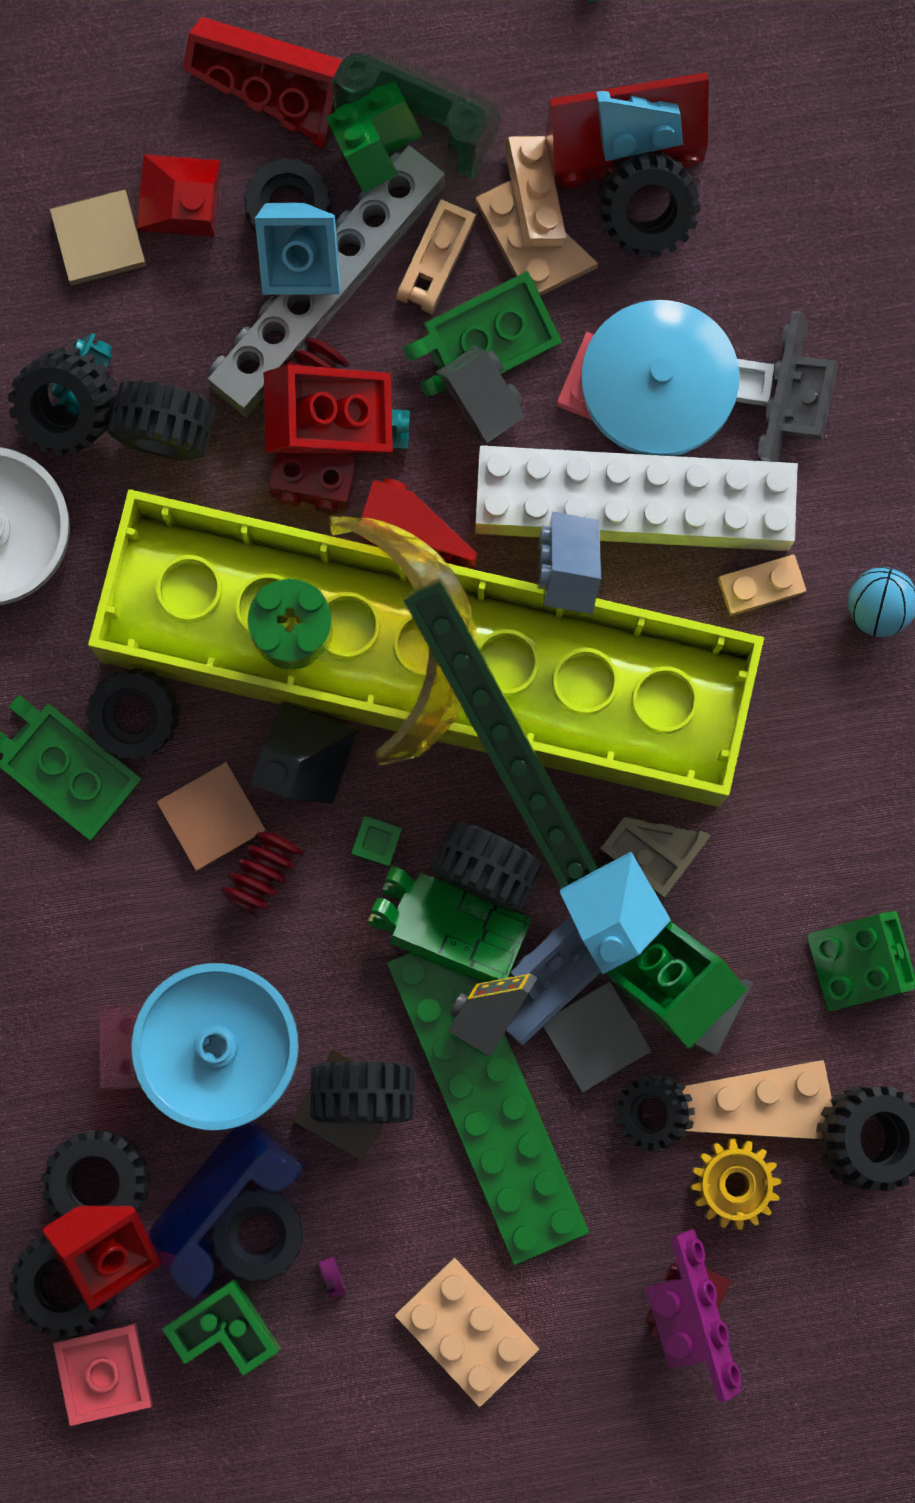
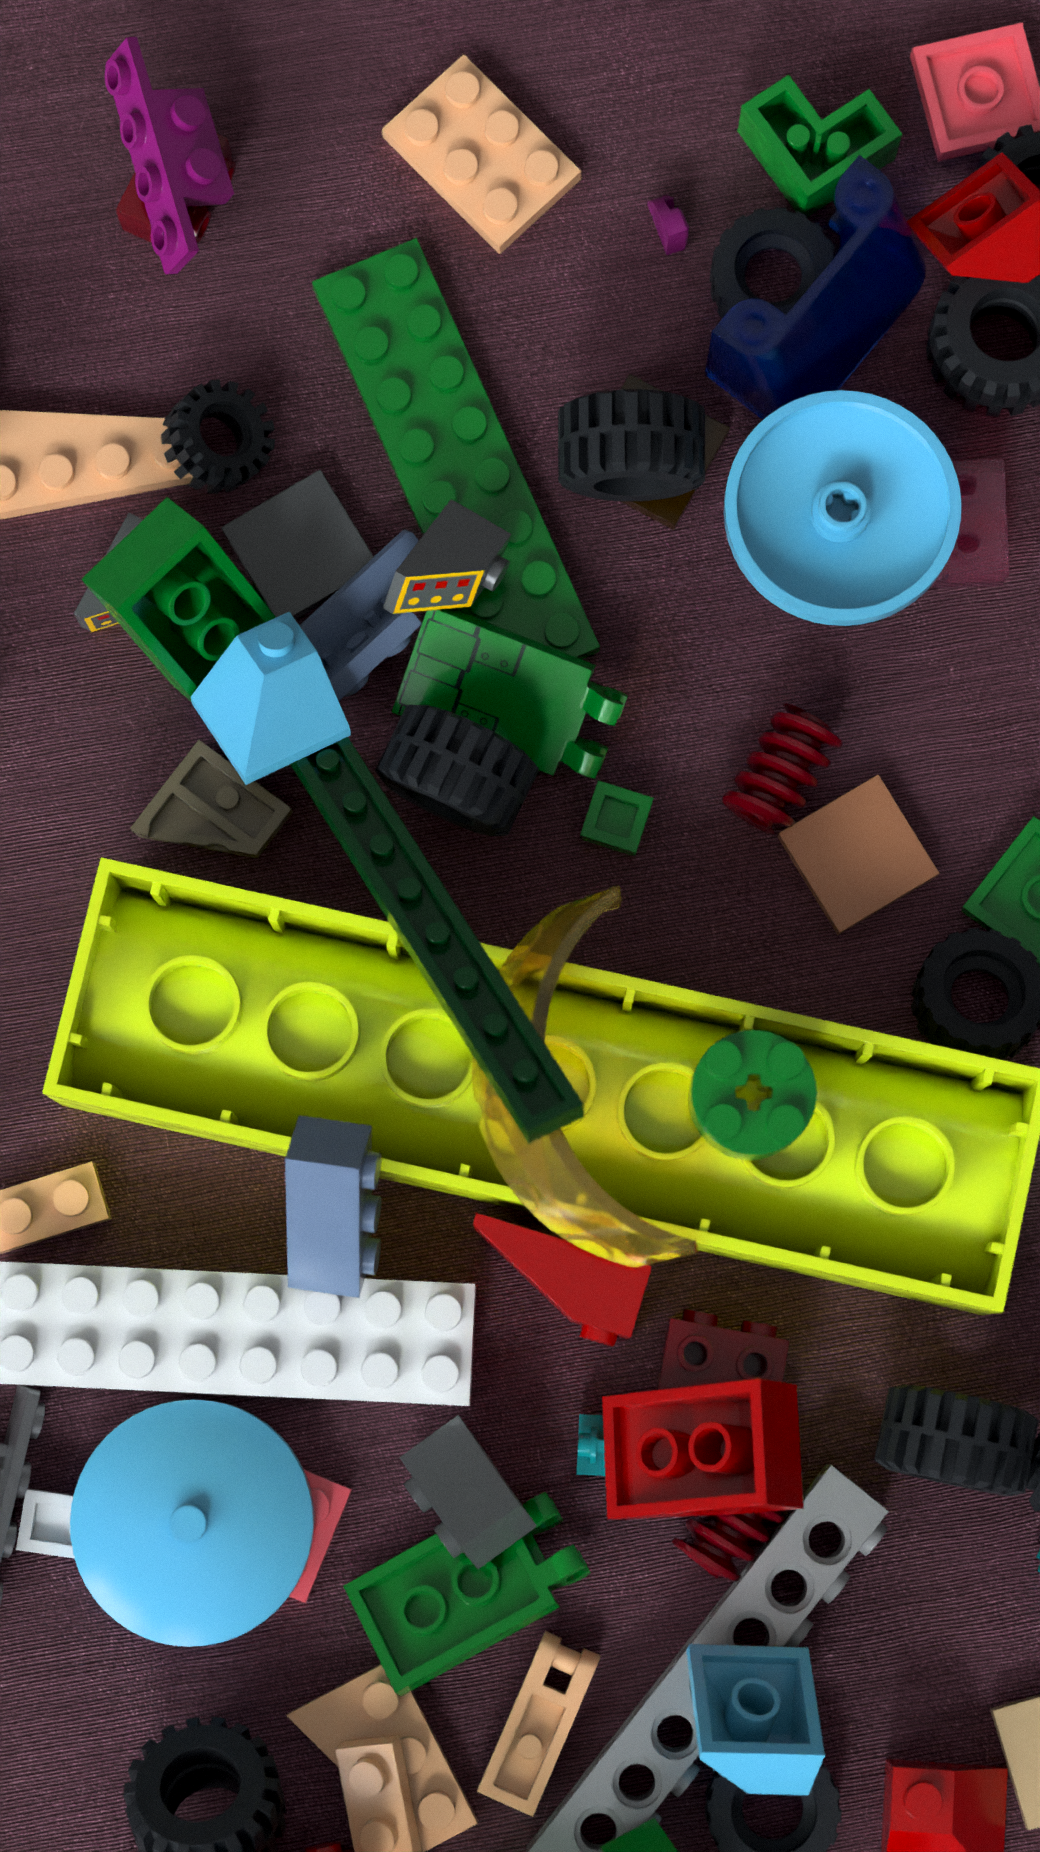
camera: 175 degrees left, 0 degrees up
(304, 755) = (726, 934): black slope -> none
(757, 1190) = (98, 316): yellow gear -> none

